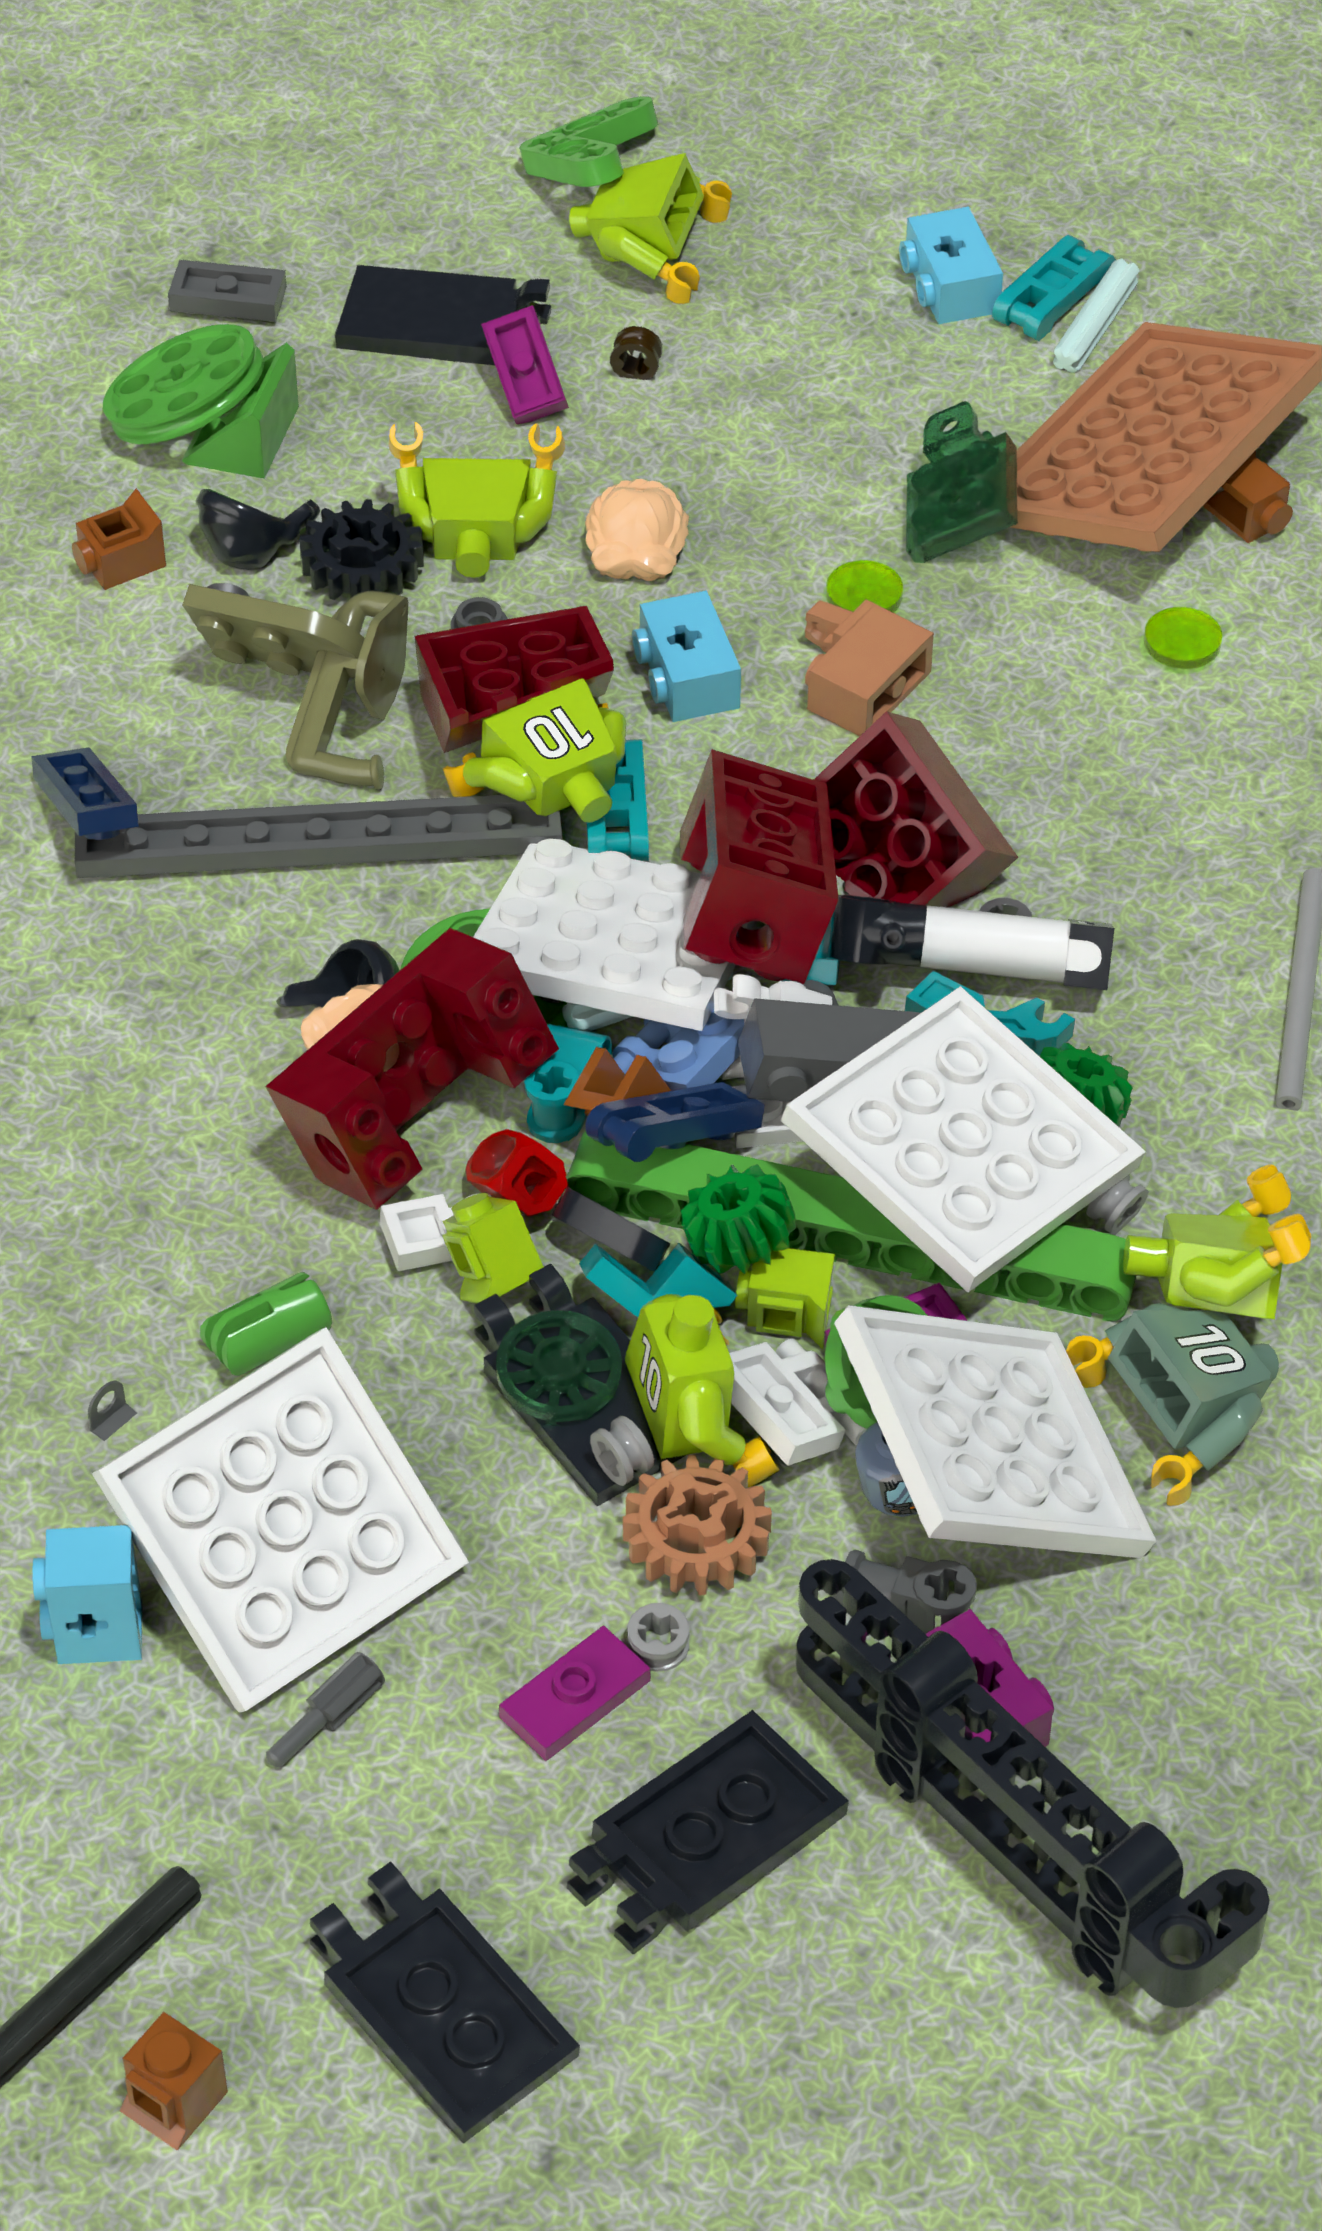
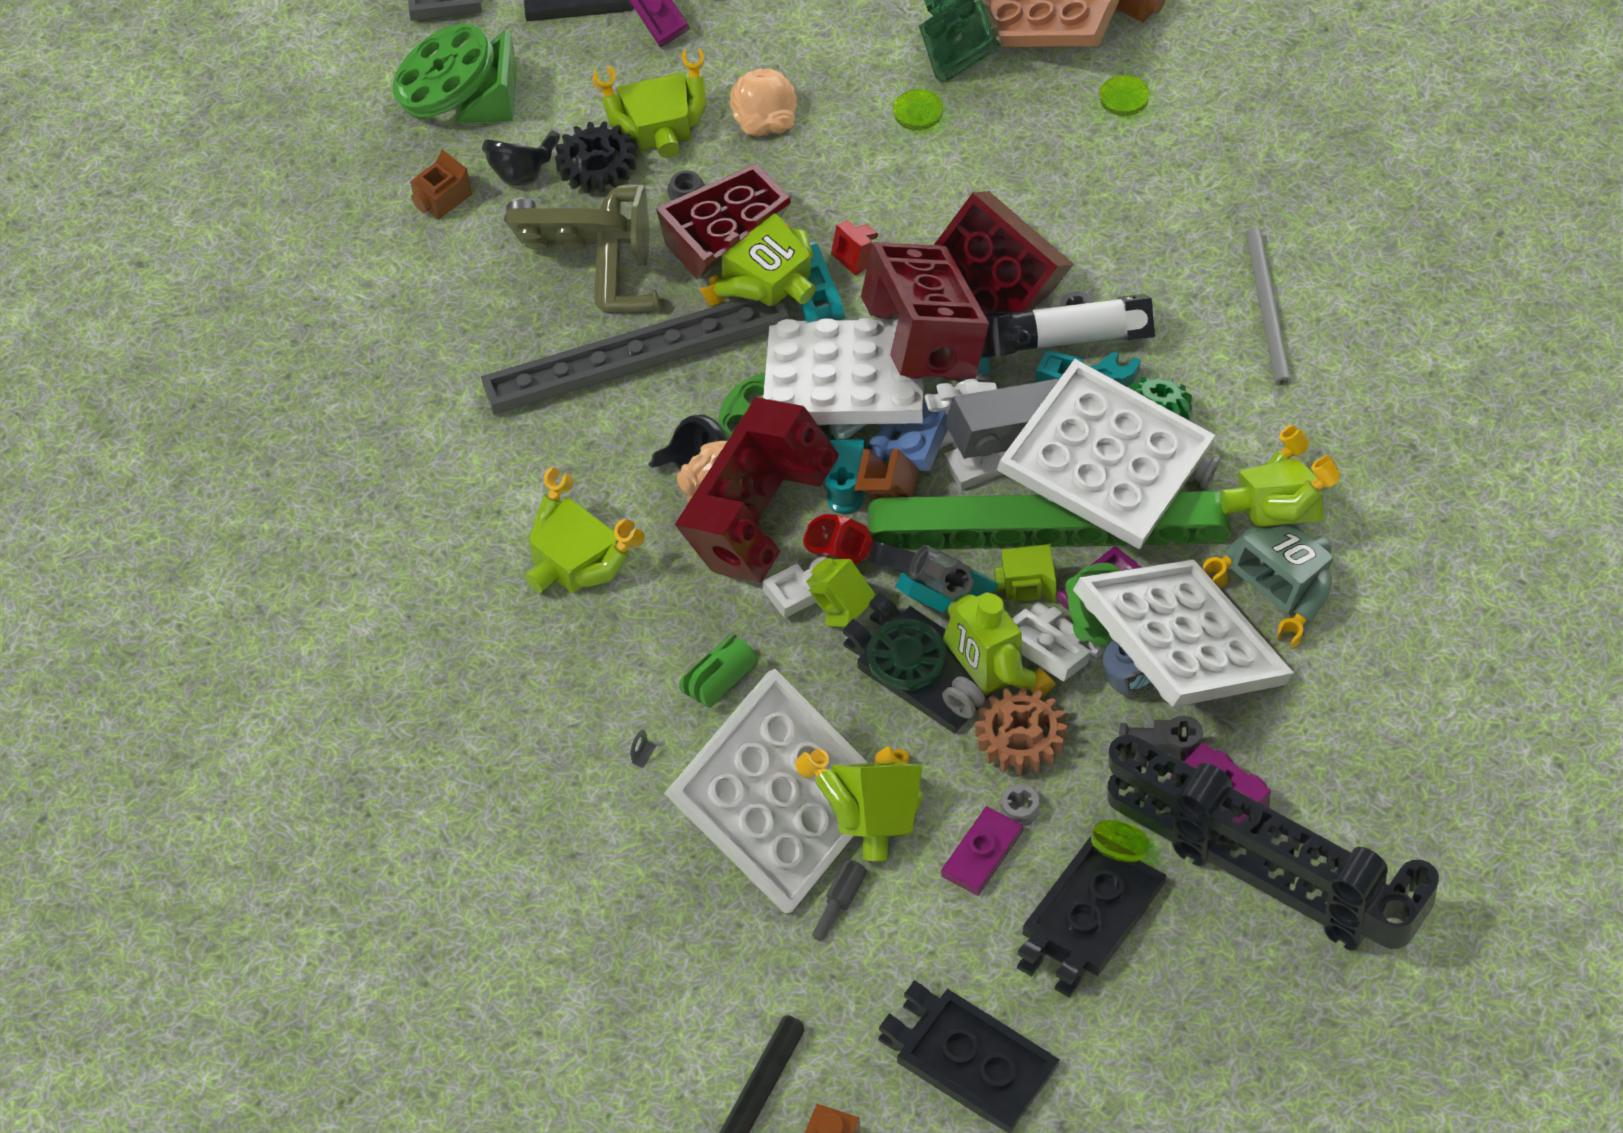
camera: 10 degrees left, 5 degrees up
(85, 793) = (483, 358): dark blue plate -> none
(90, 1594) = (678, 865): medium azure brick -> none
(117, 1084) = (573, 544): none -> lime torso
(418, 1563) = (869, 797): none -> lime torso
(646, 1252) = (941, 572): none -> dark grey piece
(673, 1119) = (925, 483): dark blue plate -> none
(687, 656) = (825, 179): medium azure brick -> none
(689, 752) = (853, 245): none -> red tile
(738, 1219) = (988, 537): green gear -> none
(793, 1730) = (1119, 840): none -> clear neon green piece
(867, 665) = (939, 157): nougat hinge -> none

